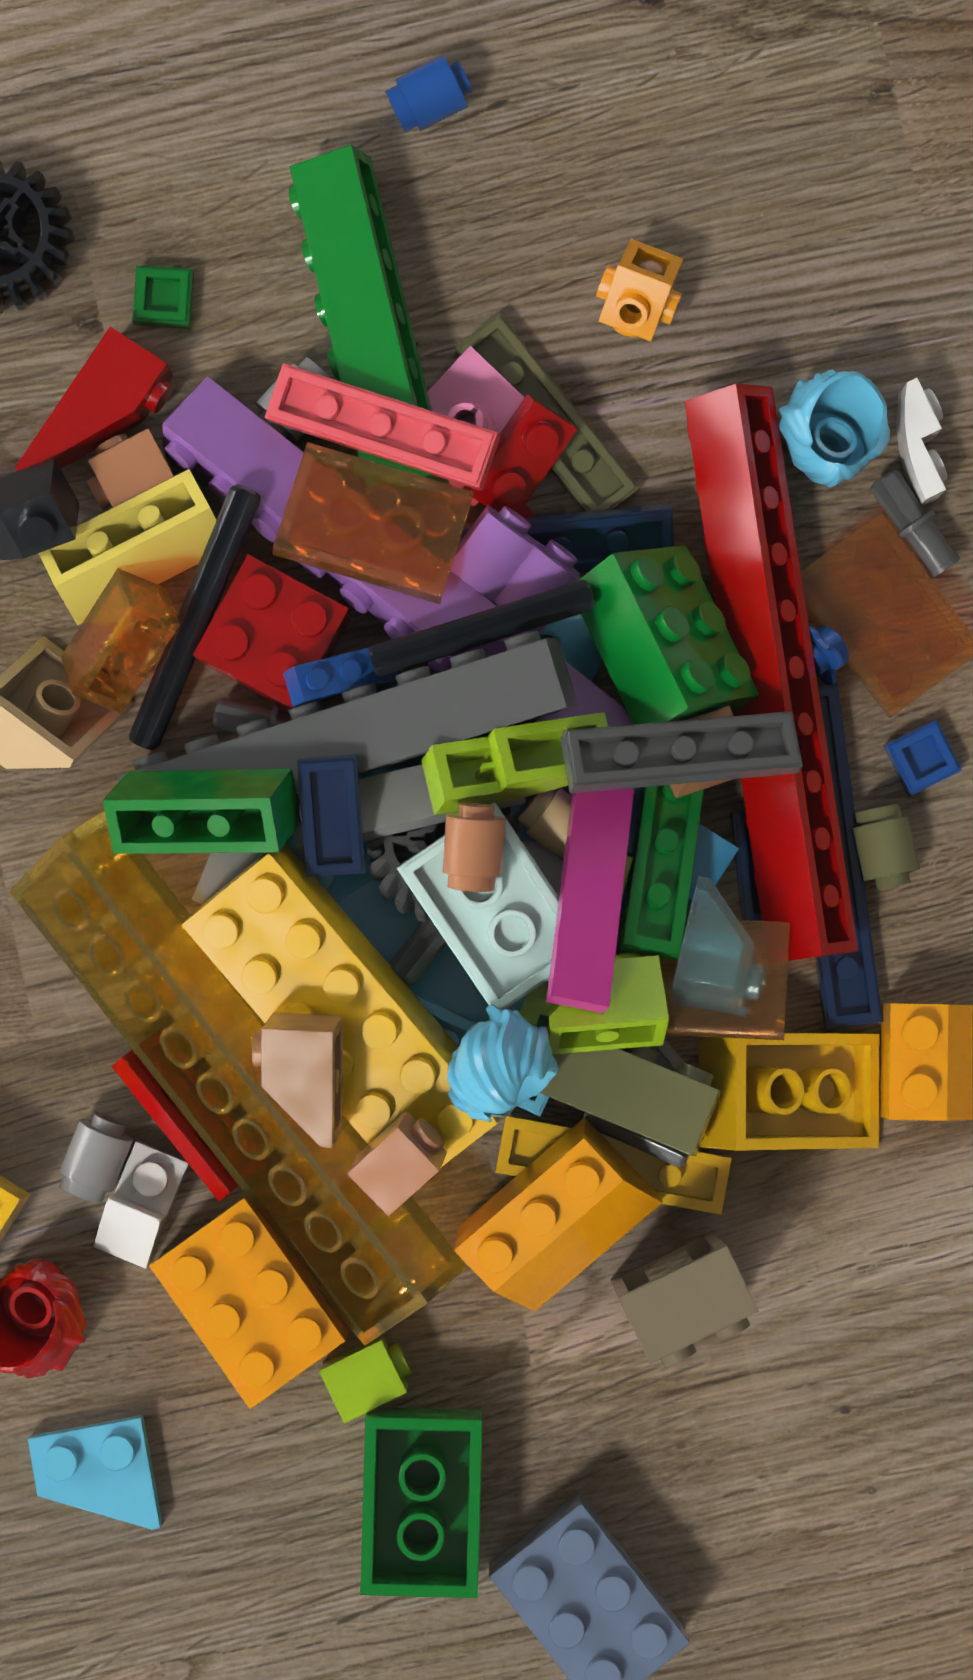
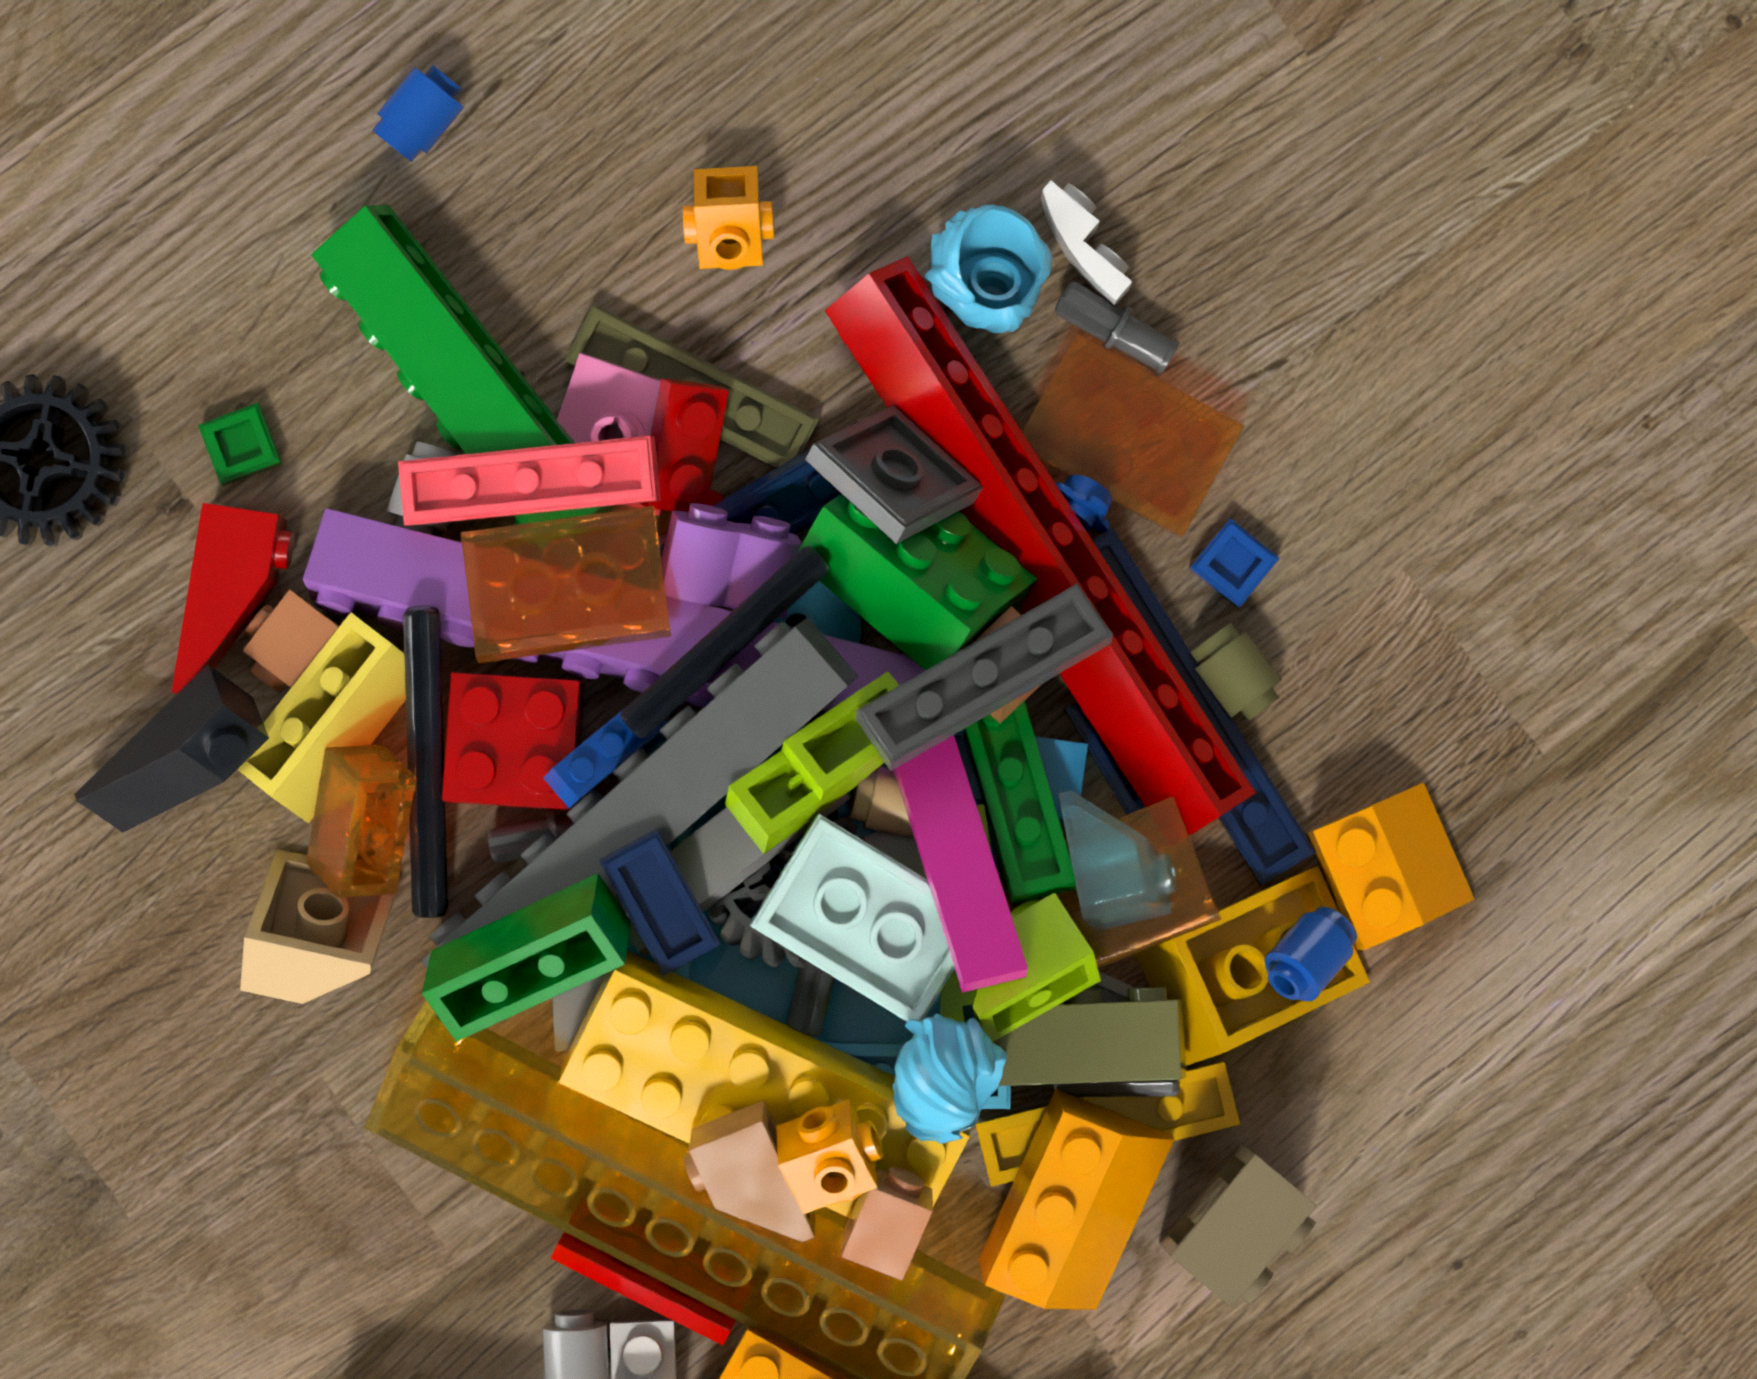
camera: 20 degrees left, 0 degrees up
(374, 1086) = (828, 1156): none -> light orange brick
(473, 847) = (819, 870): nougat brick -> none
(682, 555) = (894, 473): none -> dark grey tile
(843, 1102) = (1310, 954): none -> blue brick

